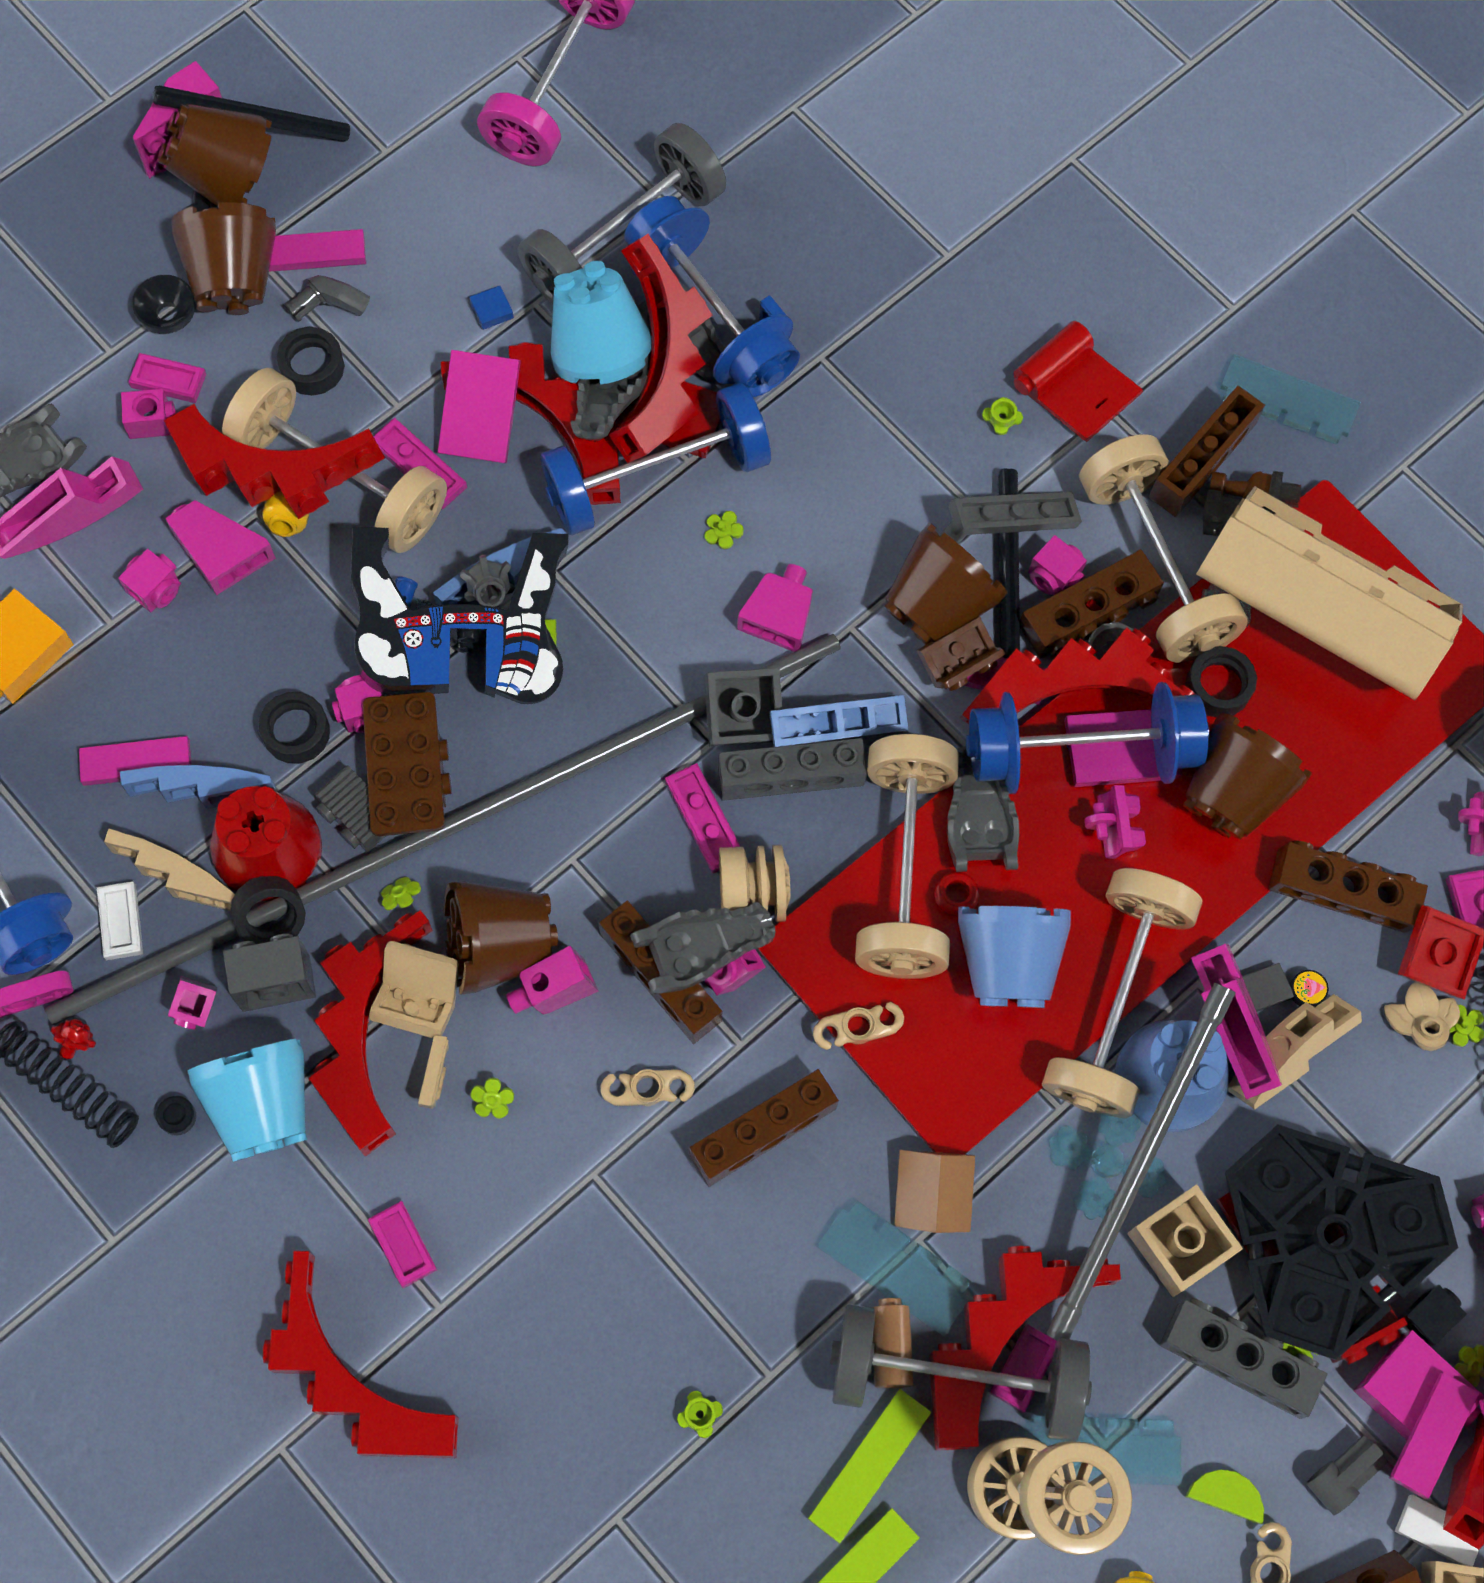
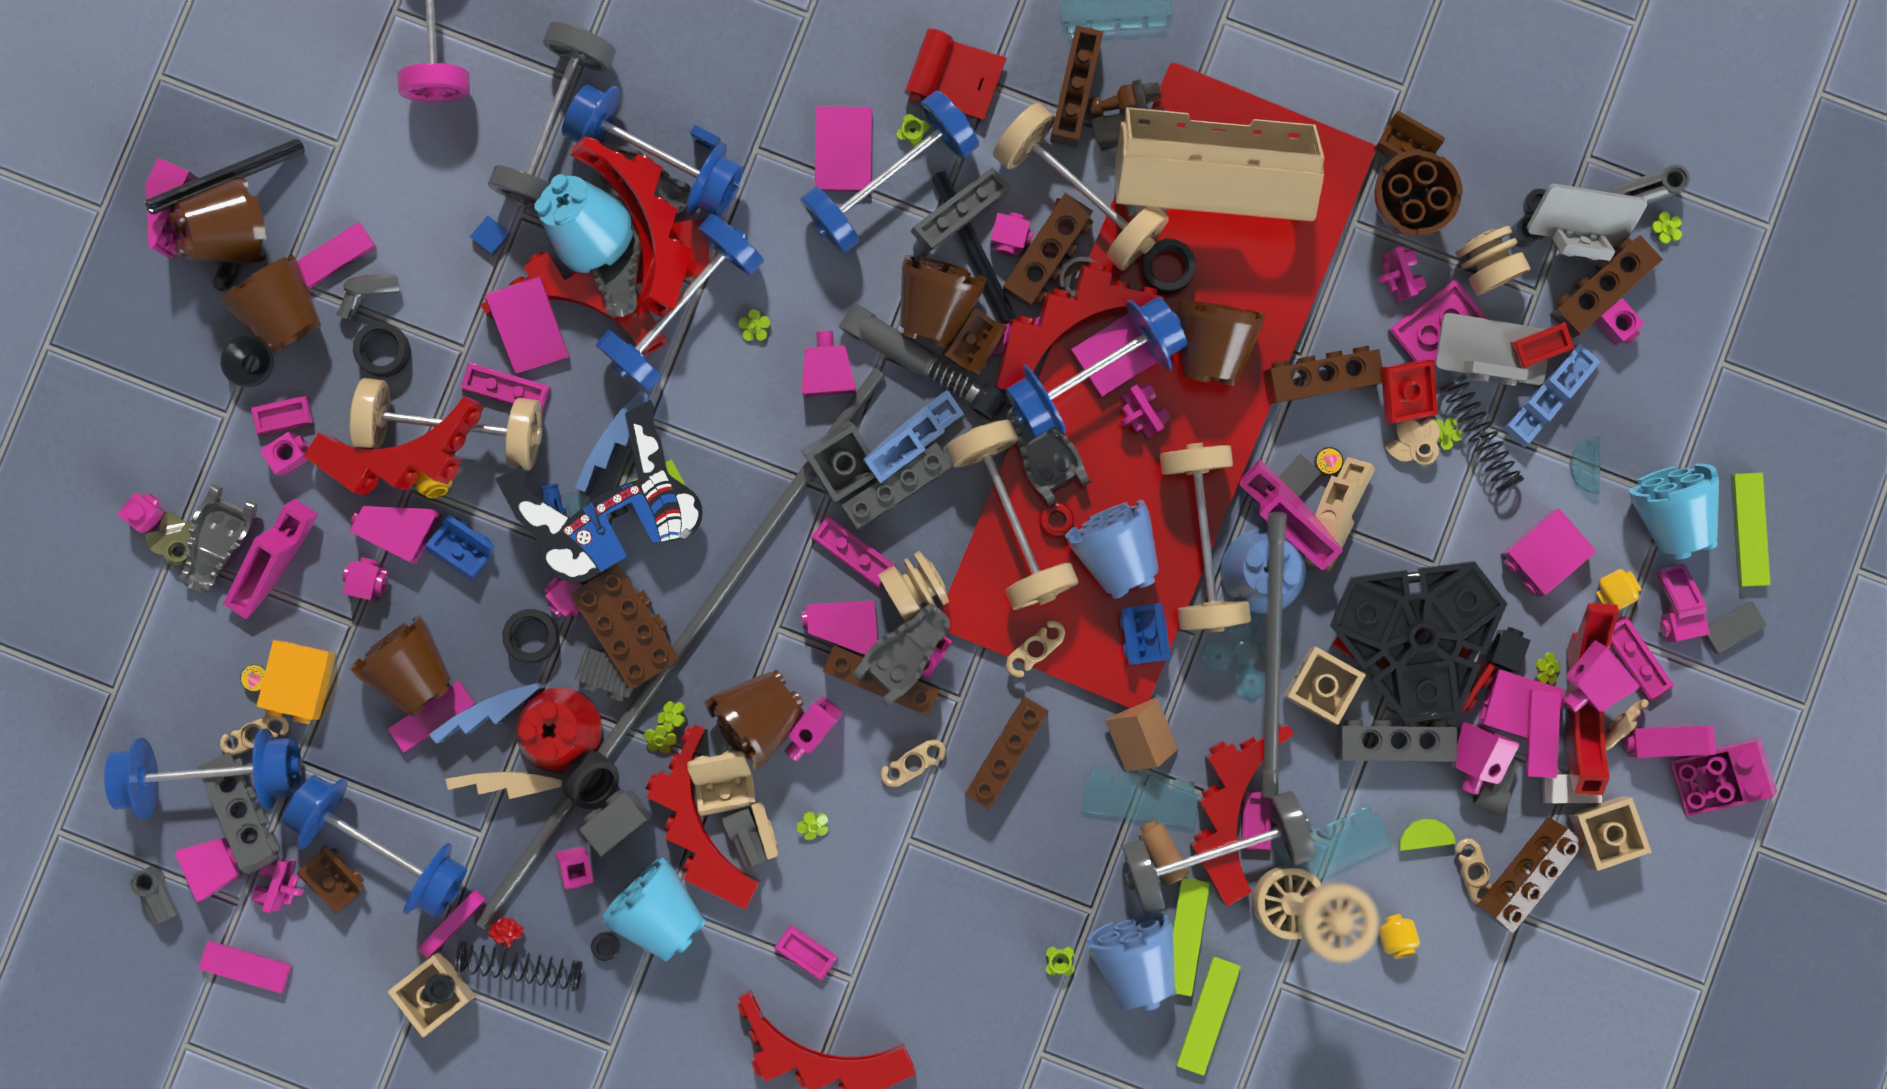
camera: 25 degrees left, 15 degrees up
(119, 920) = (488, 834): white tile -> none
(137, 685) = (405, 667): none -> reddish brown cone
(274, 597) = (460, 547): none -> blue bracket
(371, 912) = (660, 739): none -> lime plant
(407, 1061) = (743, 831): none -> dark grey piece
(487, 582) = (612, 465): dark grey rock -> none
(650, 883) = (844, 623): none -> dark pink slope
(794, 1457) = (1136, 959): none -> medium blue cone
(844, 583) = (920, 360): none -> piece
(916, 399) = (843, 148): none -> dark pink tile
(997, 1071) = (1145, 633): none -> blue bracket
(1045, 421) = (948, 124): none -> blue axle
(1345, 1427) = (1483, 756): none -> dark pink torso

